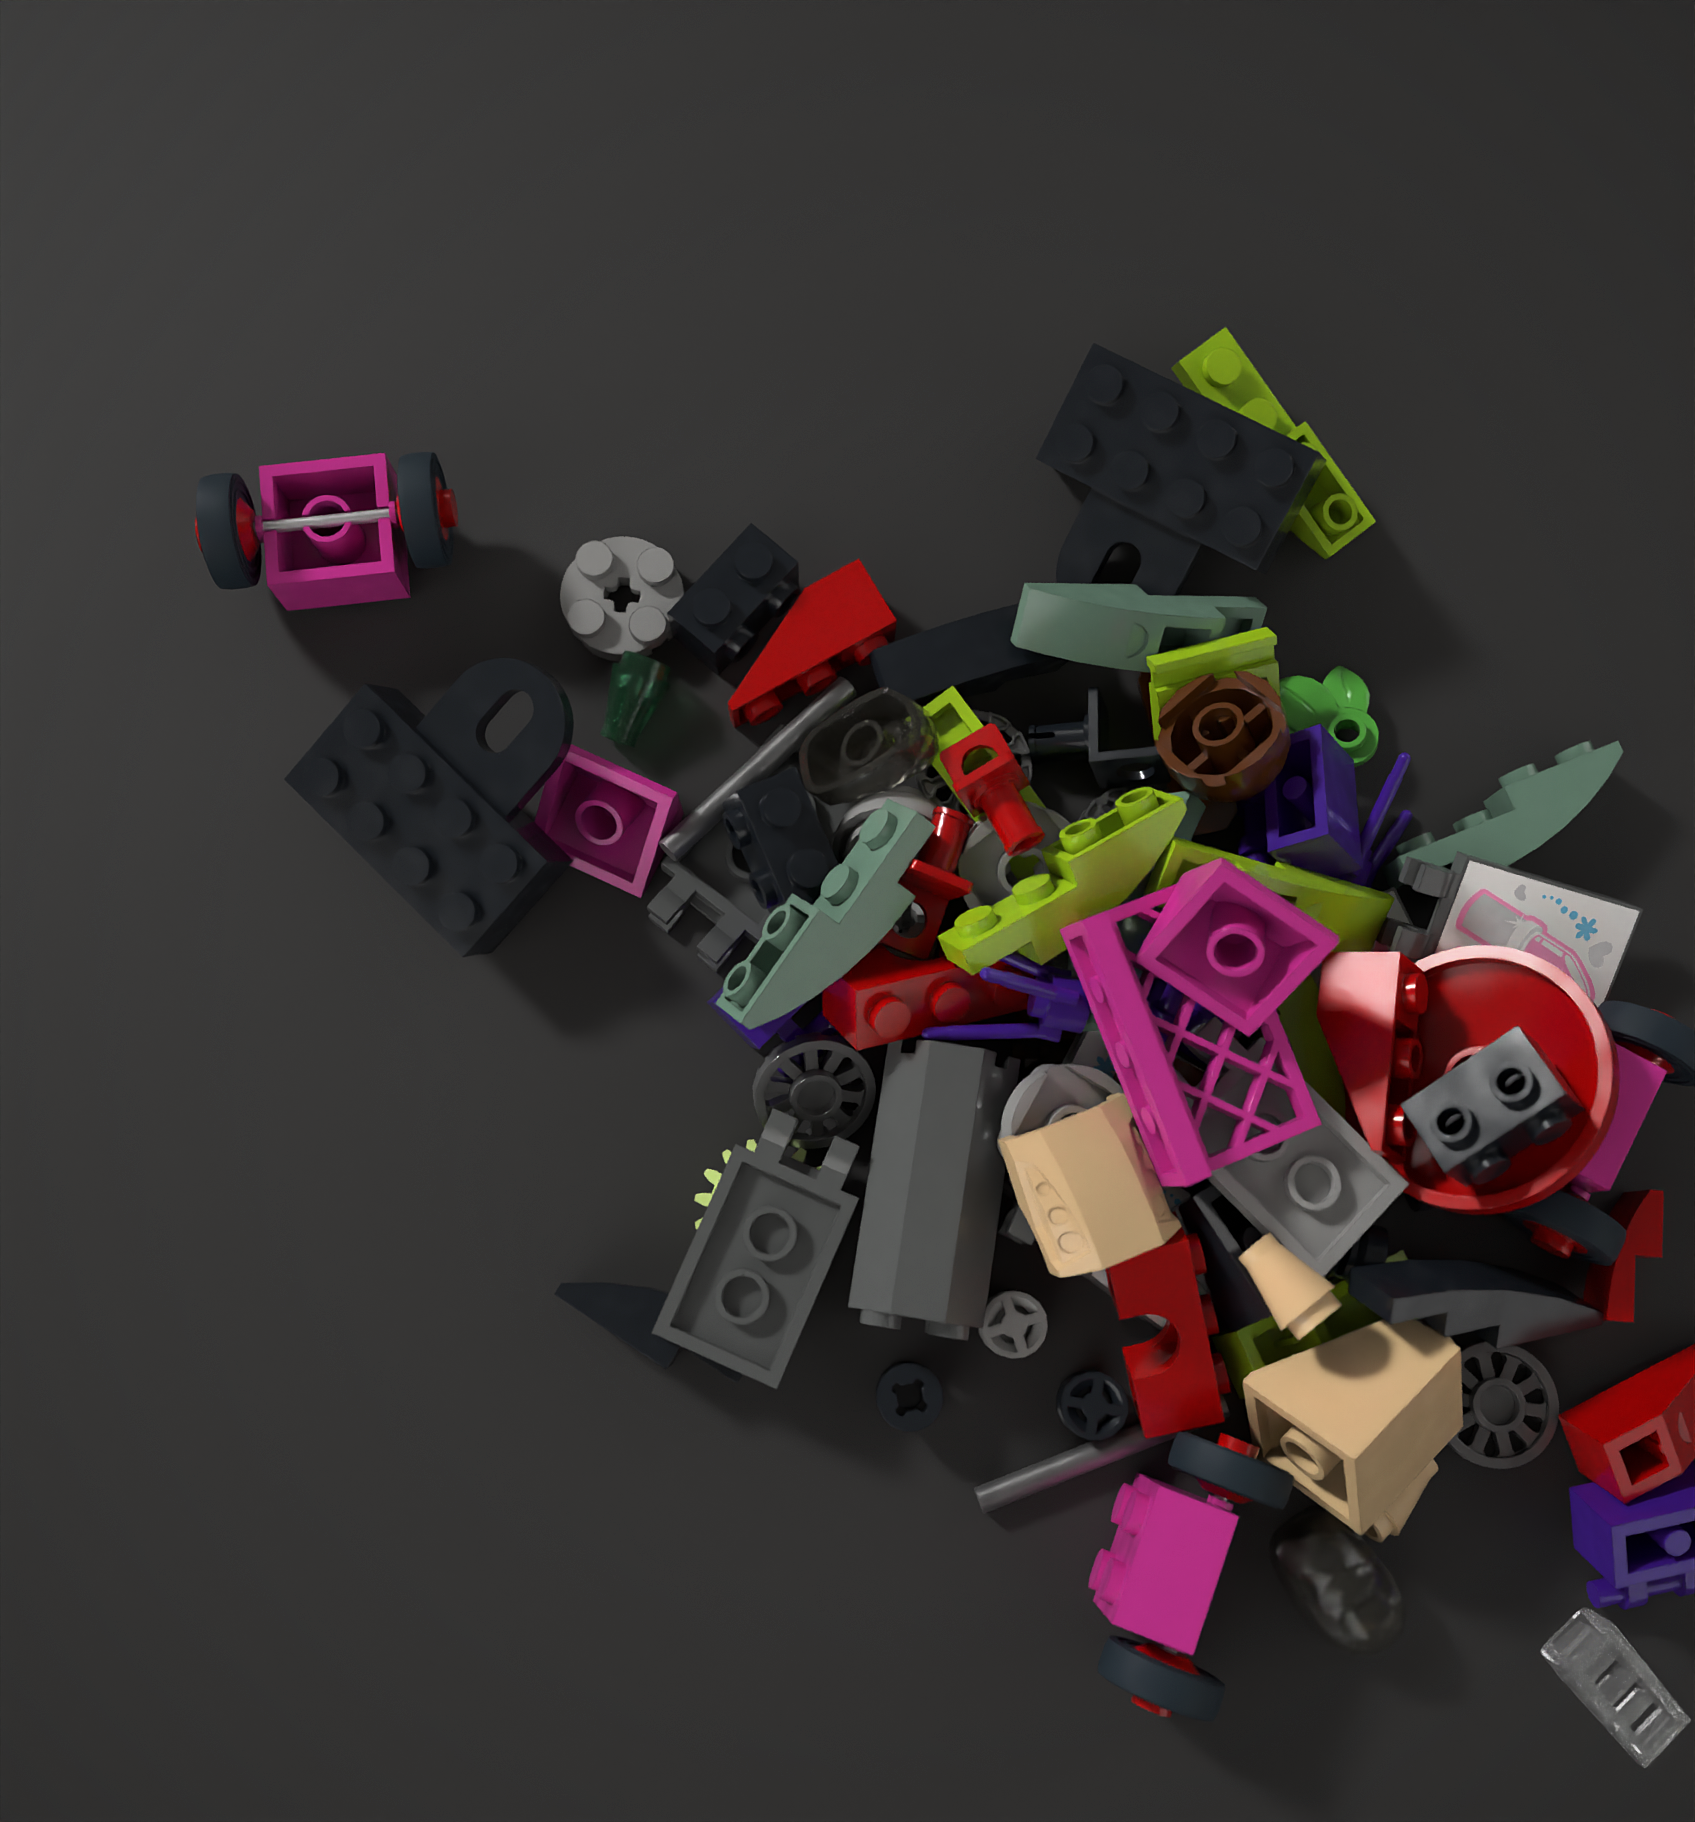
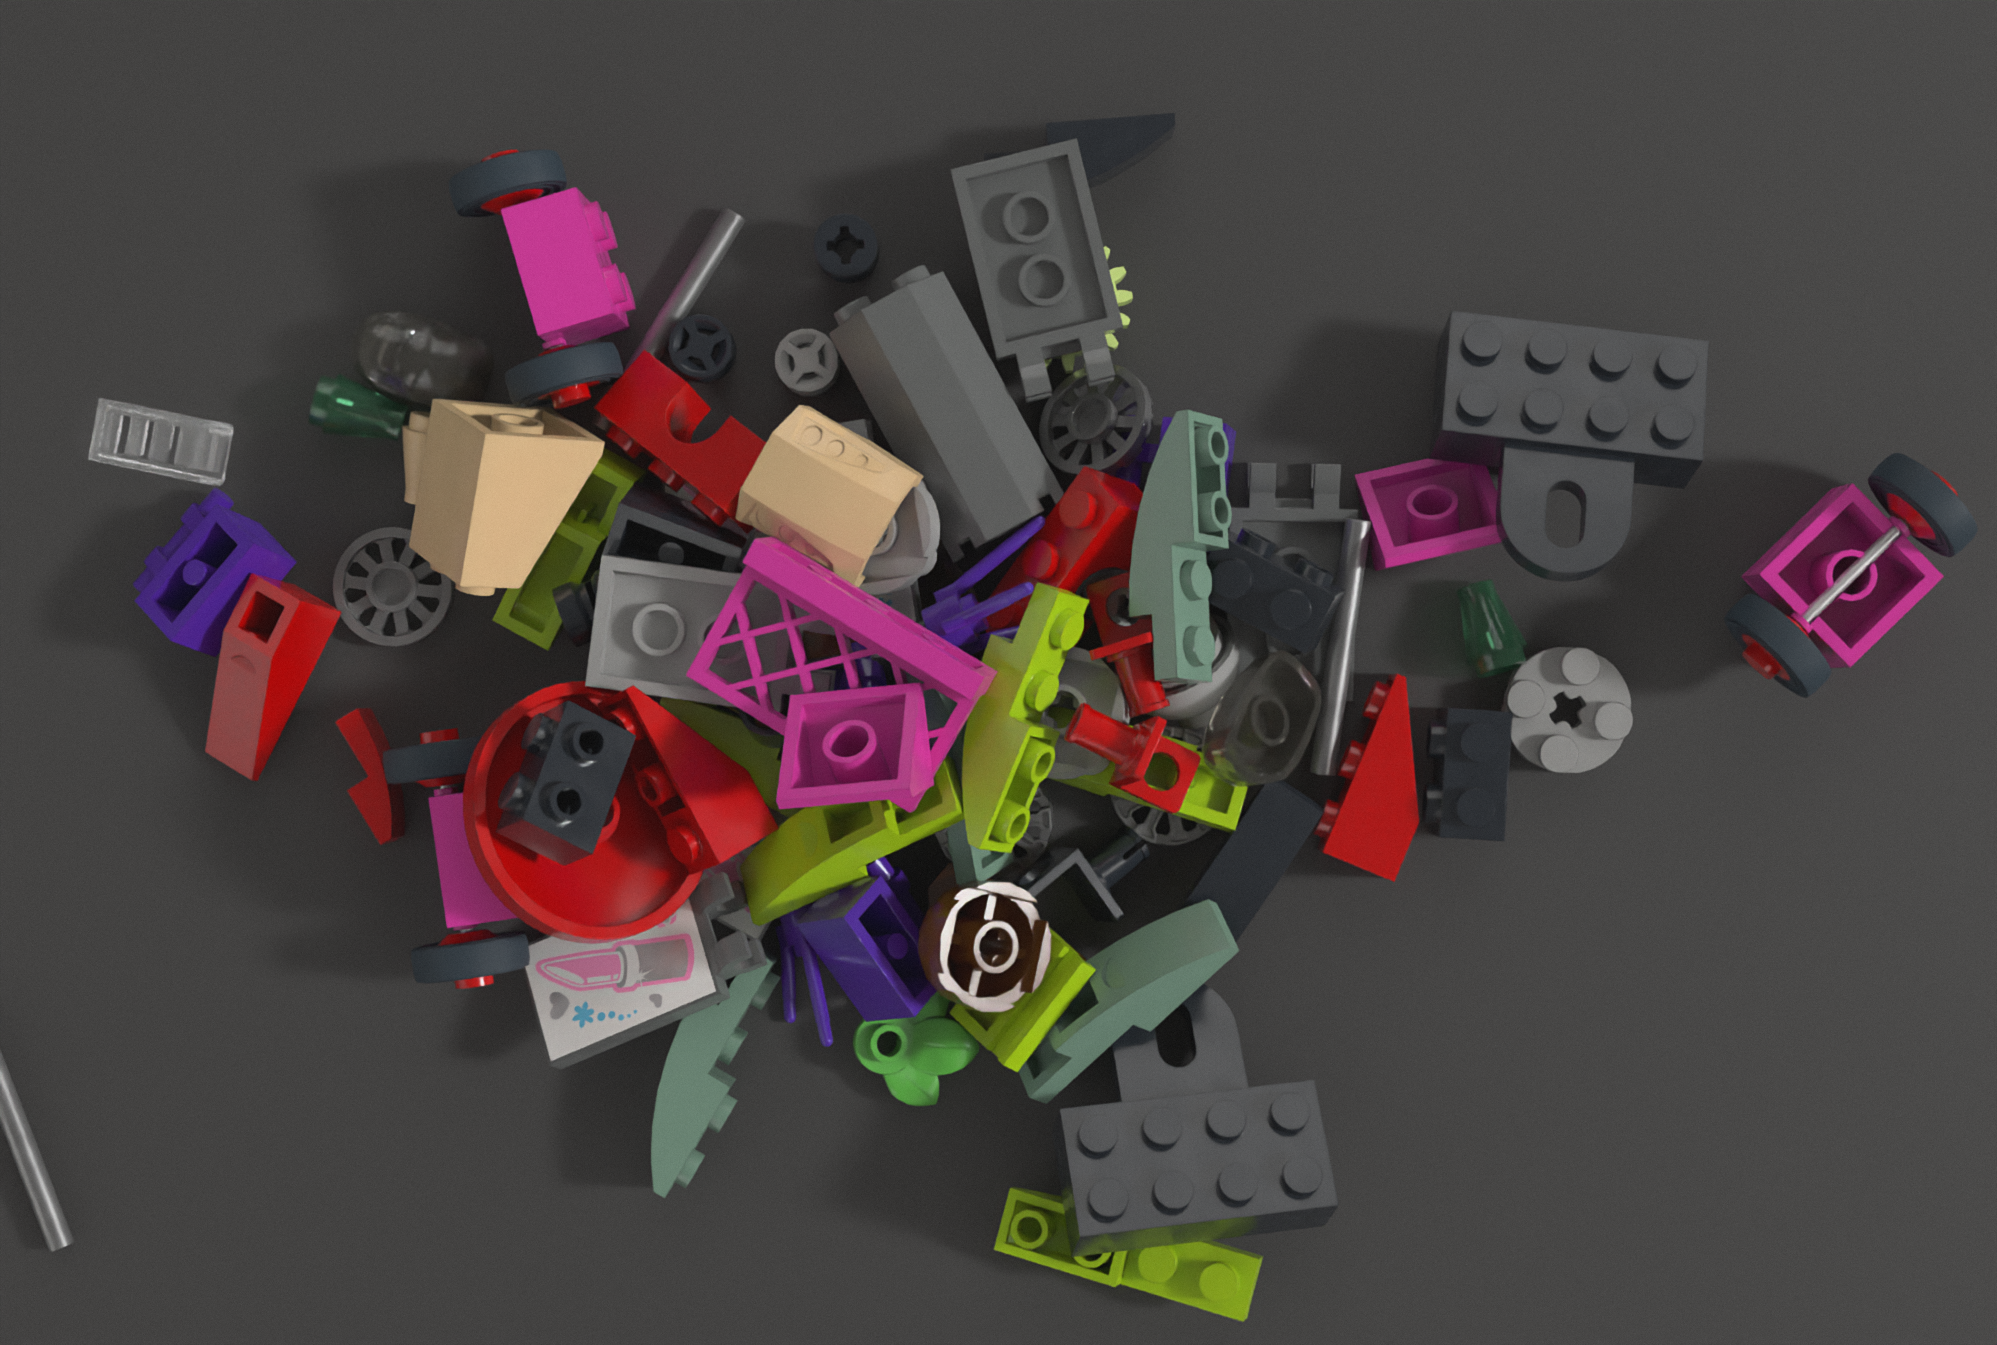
camera: 150 degrees right, 10 degrees up
(1290, 1287) = (622, 532): tan cone -> none
(1428, 1582) = (355, 410): none -> clear green cone
(1467, 1296) = (484, 634): black slope -> none

